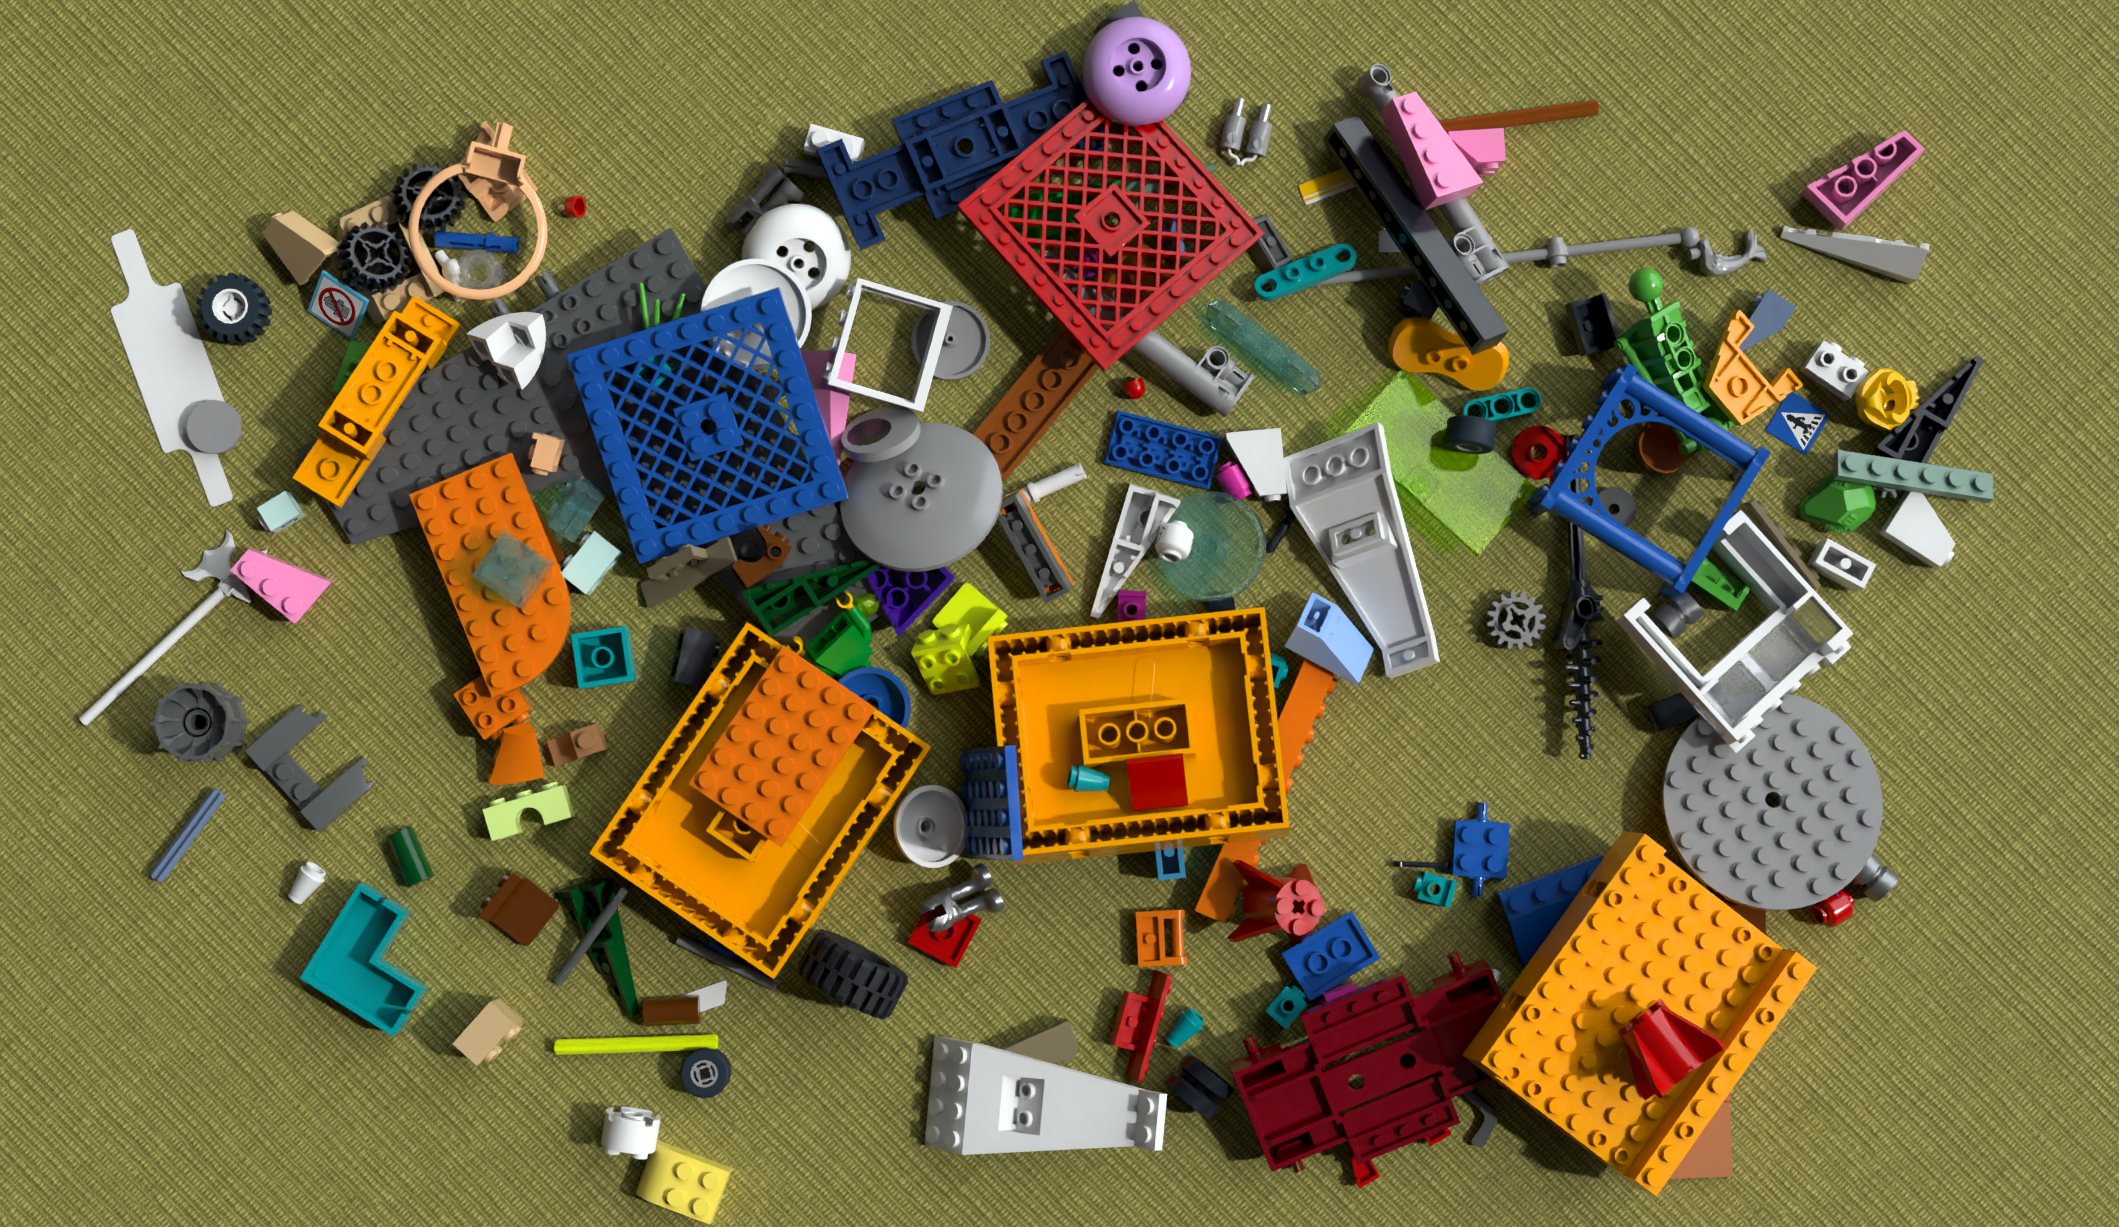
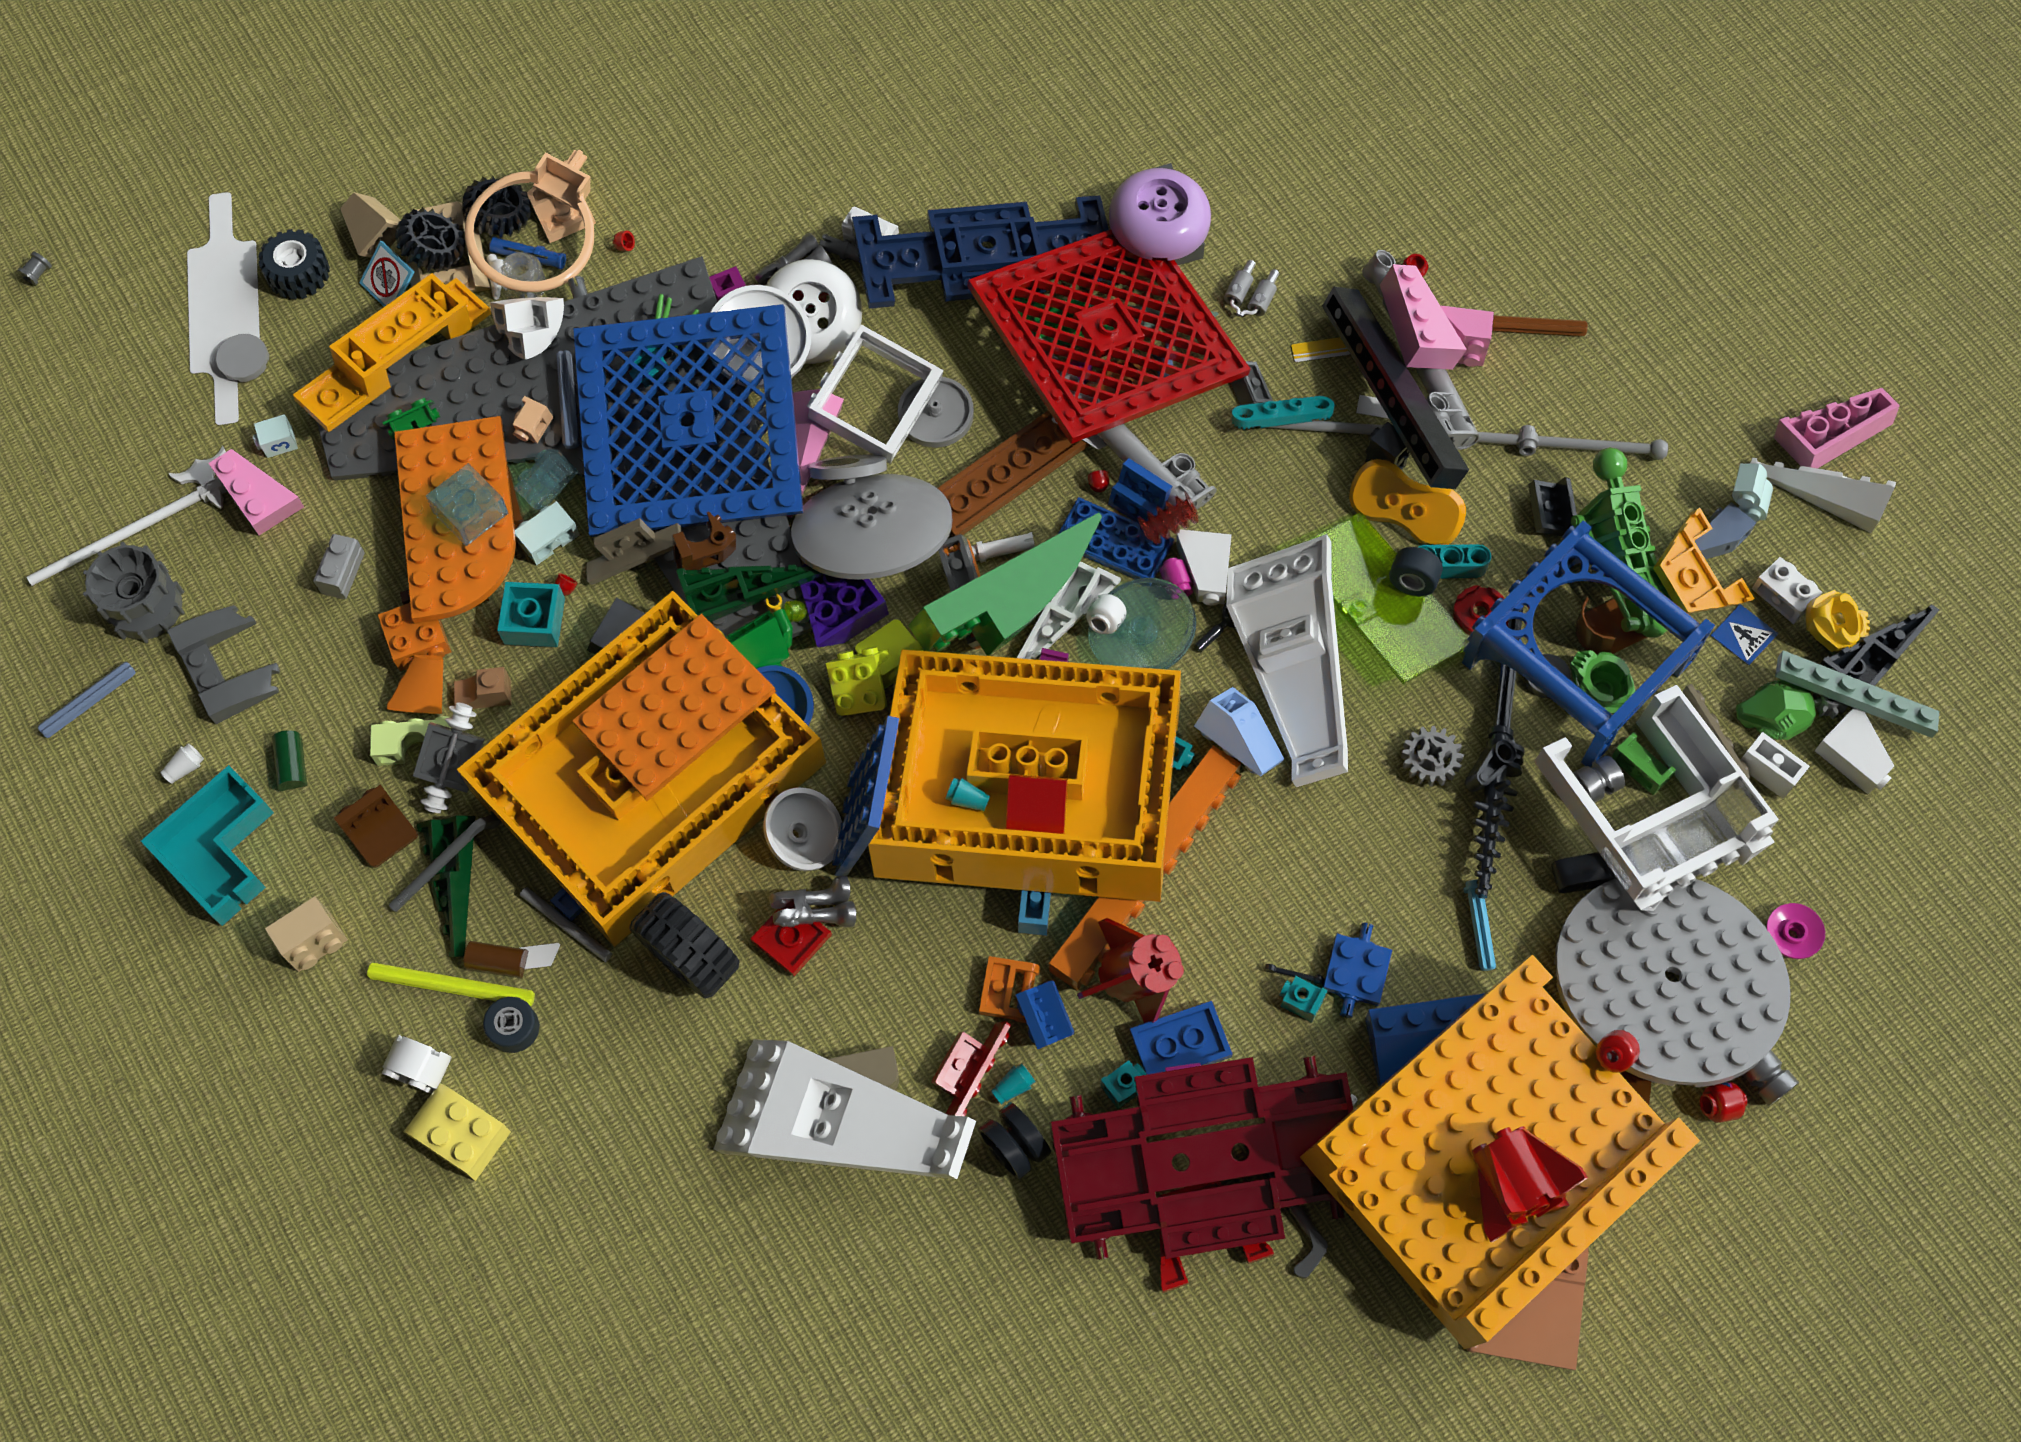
camera: 15 degrees right, 20 degrees down
(394, 644) = (339, 566): none -> light grey brick
(426, 463) = (420, 412): none -> green hinge
(569, 829) = (443, 753): none -> dark grey plate
(575, 420) = (567, 399): none -> sand blue axle
(626, 612) = (566, 583): none -> red hinge
(704, 234) = (726, 282): none -> magenta brick
(1082, 554) = (1005, 598): none -> slope
(1180, 401) = (1138, 492): none -> blue slope
(1200, 959) = (1044, 1014): none -> blue bracket
(1218, 430) = (1169, 519): none -> clear red piece
(1263, 347) = (1229, 469): clear light blue brick -> none
(1411, 68) = (1418, 261): none -> red plate
(1588, 785) = (1481, 928): none -> medium azure axle
(1669, 512) = (1603, 678): none -> bright green helmet
(1717, 265) = (1680, 479): light grey animal -> none
(1733, 898) = (1617, 1051): none -> red head
(1789, 274) = (1753, 491): none -> light aqua brick
(1893, 726) = (1801, 920): none -> dark pink dish

